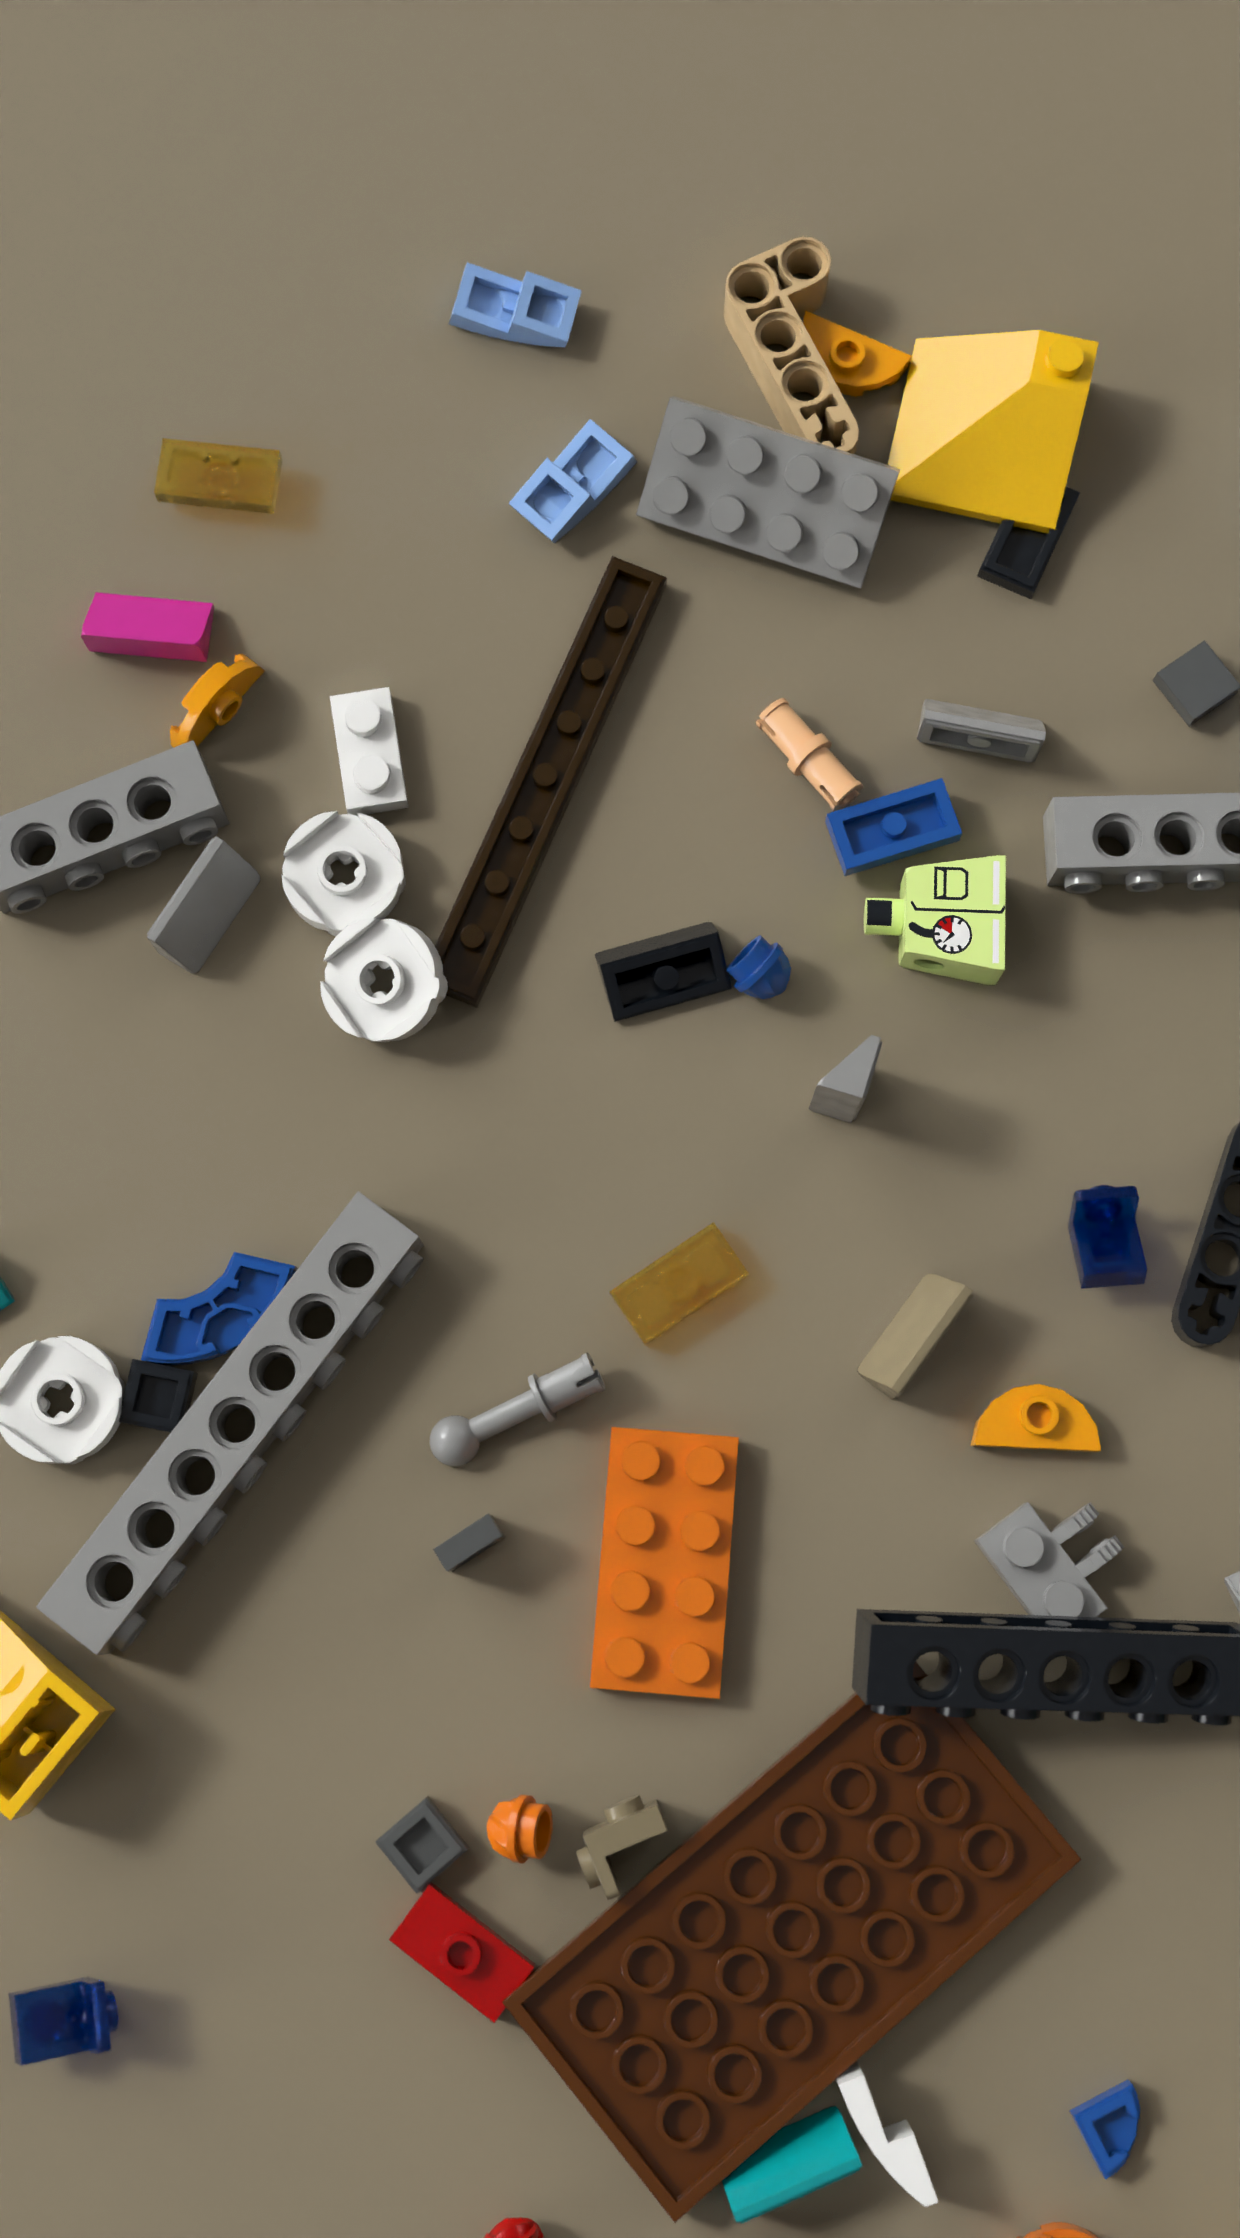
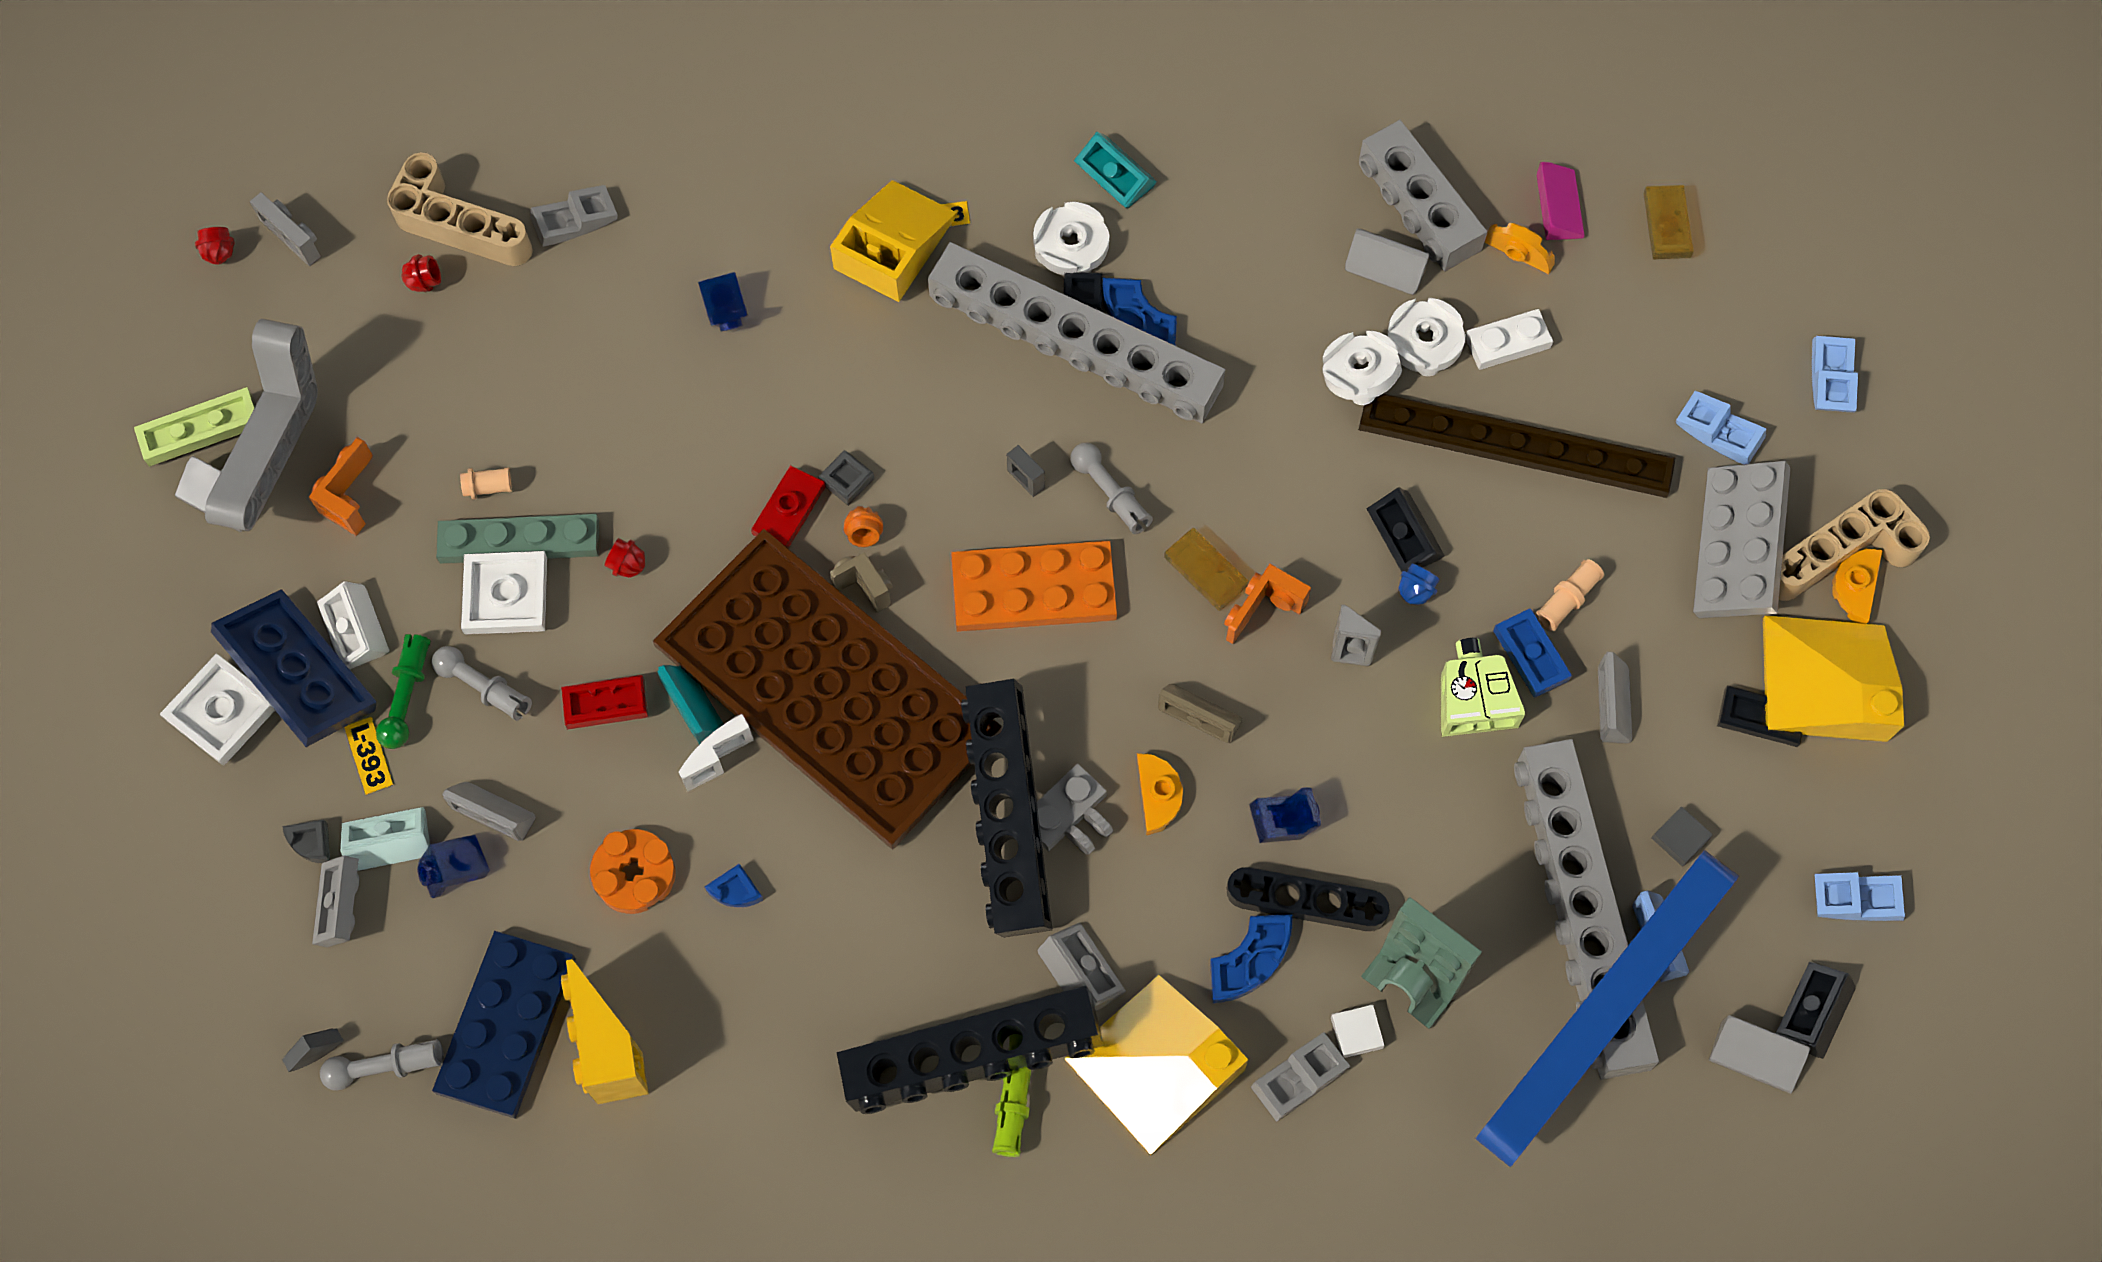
camera: 80 degrees right, 10 degrees down
(747, 1171) = (1283, 591): none -> orange bracket

